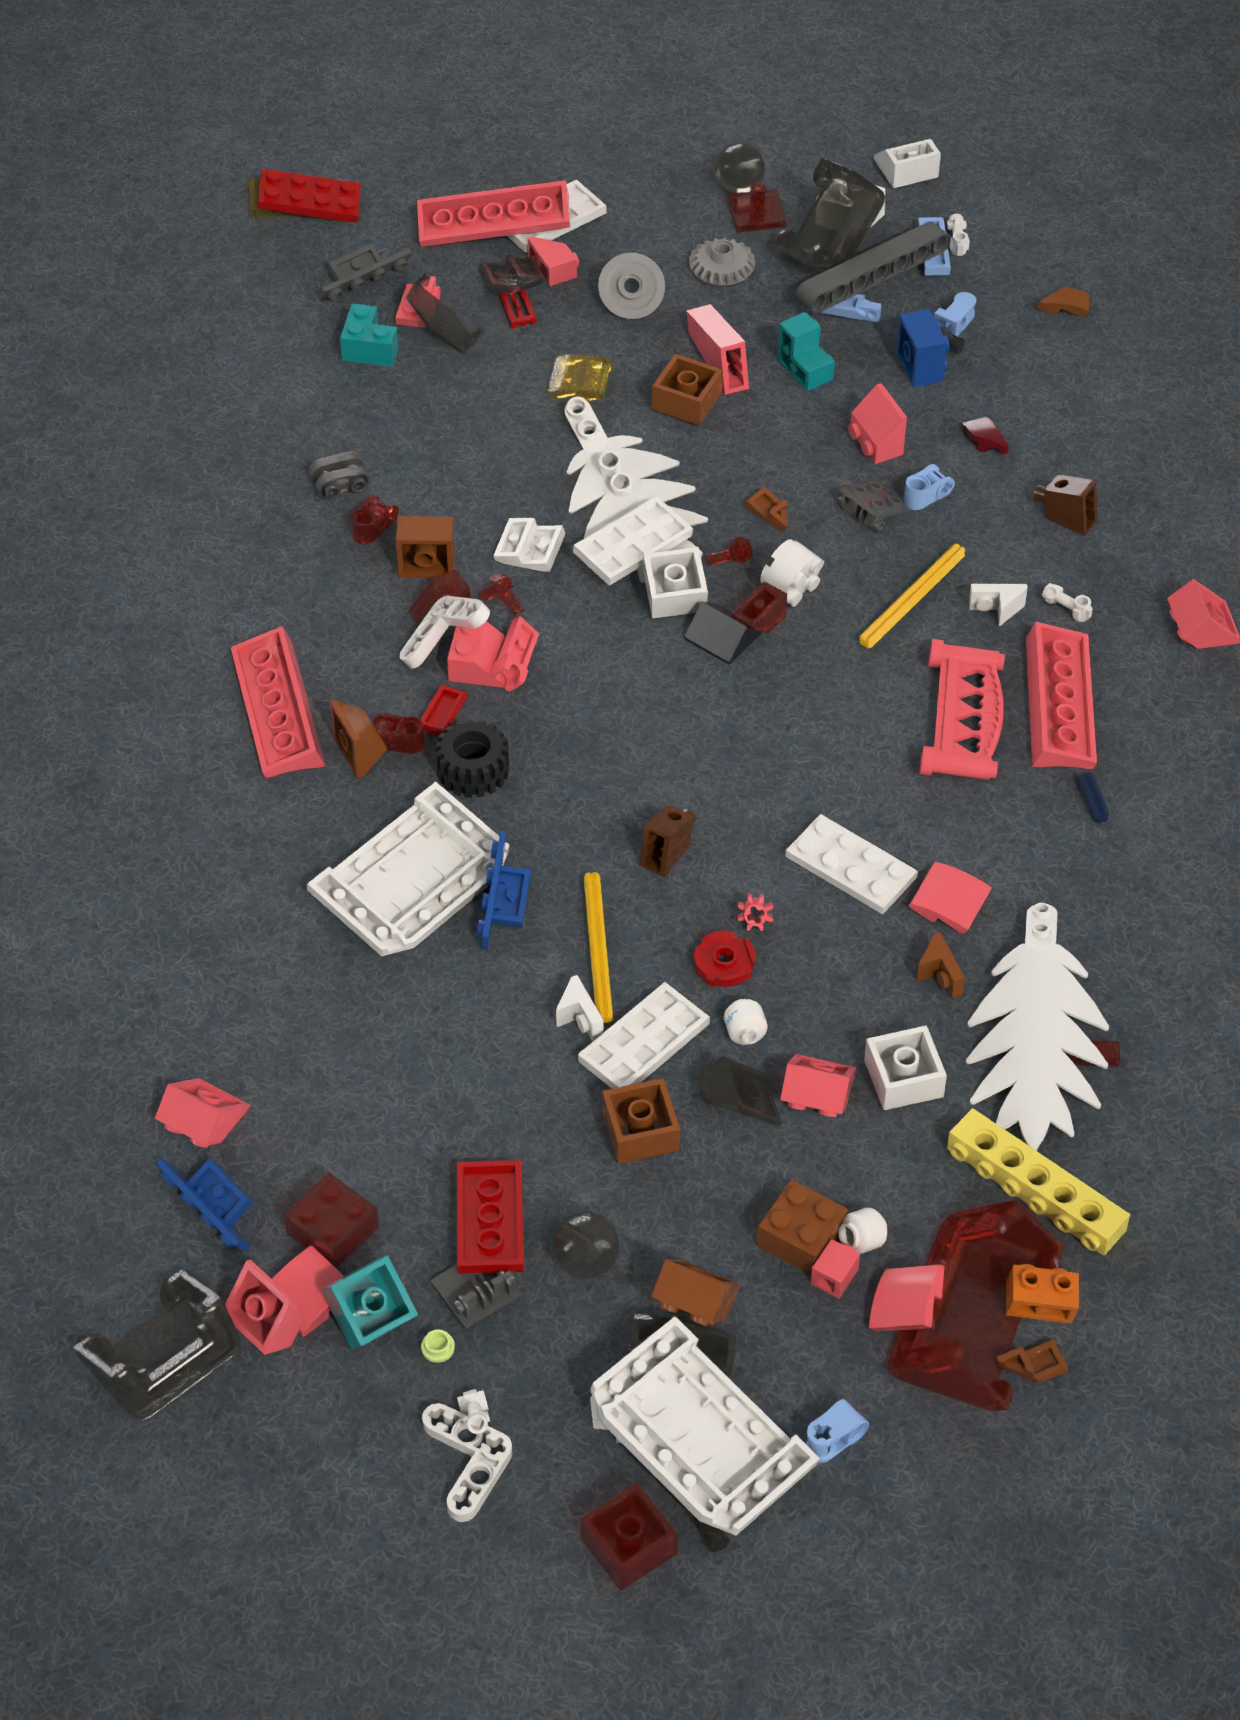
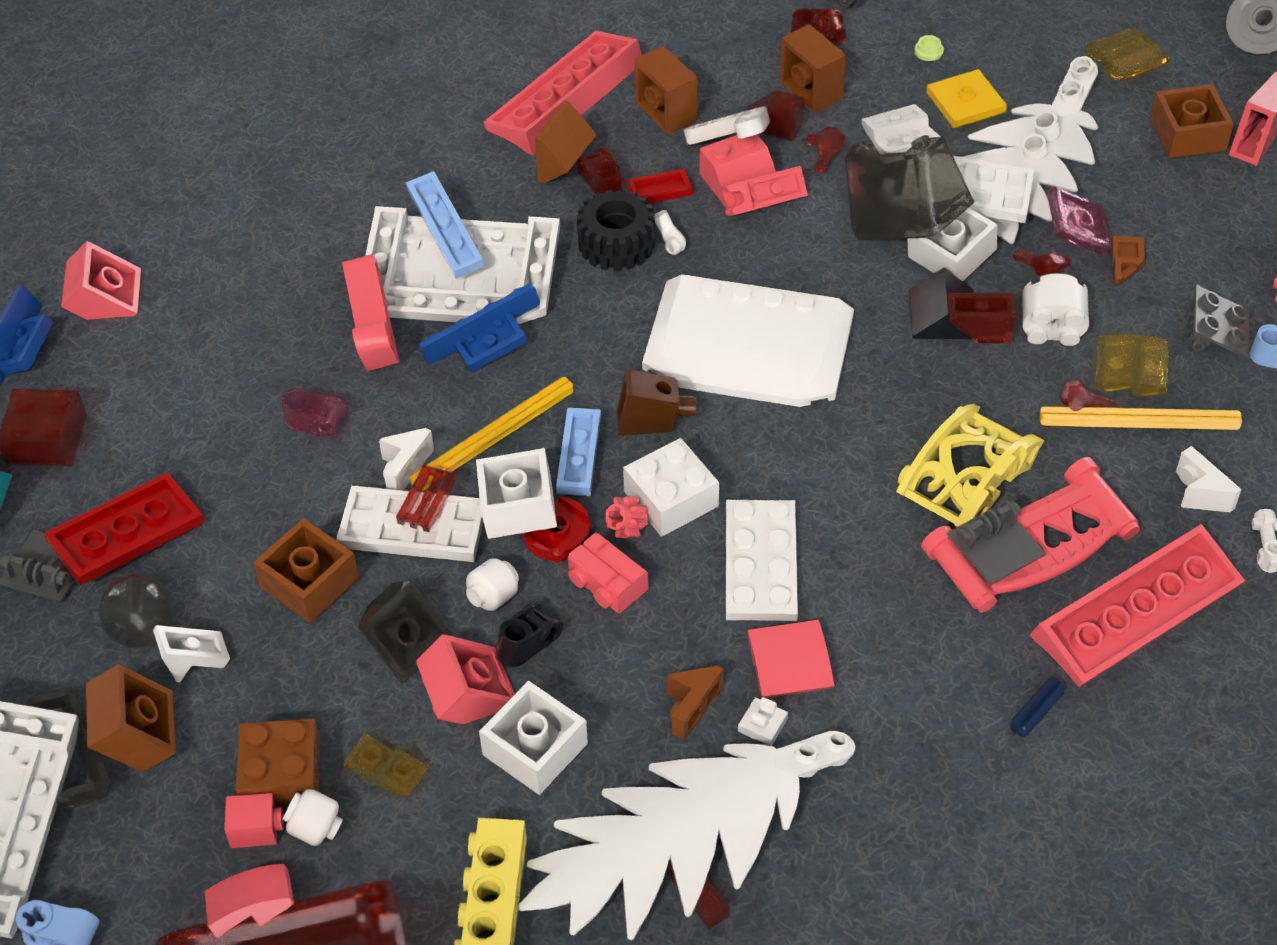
camera: 55 degrees right, 0 degrees up
(359, 642) = (666, 90): none -> dark orange brick
(369, 853) = (445, 225): none -> light blue plate
(418, 949) = (370, 312): none -> coral beam
(460, 474) = (929, 48): none -> yellowish green plate
(480, 1042) = (311, 412): none -> clear pink piece
(510, 732) = (671, 235): none -> white arm
(531, 488) = (966, 98): none -> yellow plate
(627, 1021) = (417, 519): none -> clear red tile
(628, 577) = (904, 191): none -> clear smoke windscreen
(647, 753) = (749, 340): none -> white slope
(649, 1233) = (190, 647): none -> white slope
(665, 906) = (578, 452): none -> light blue plate
(692, 954) = (516, 493): none -> white brick
(719, 507) = (1079, 221): none -> clear pink tile
(751, 868) = (672, 486): none -> white brick
(794, 951) = (607, 573): none -> coral brick
(807, 1028) = (526, 635): none -> black piece
(853, 1169) = (387, 769): none -> clear yellow slope
(860, 679) = (963, 429): none -> light yellow fence
(865, 568) = (1132, 363): none -> clear yellow slope
(868, 612) = (1077, 395): none -> clear red piece
(960, 729) = (996, 542): none -> dark grey hinge
(986, 942) = (763, 721): none -> white tile

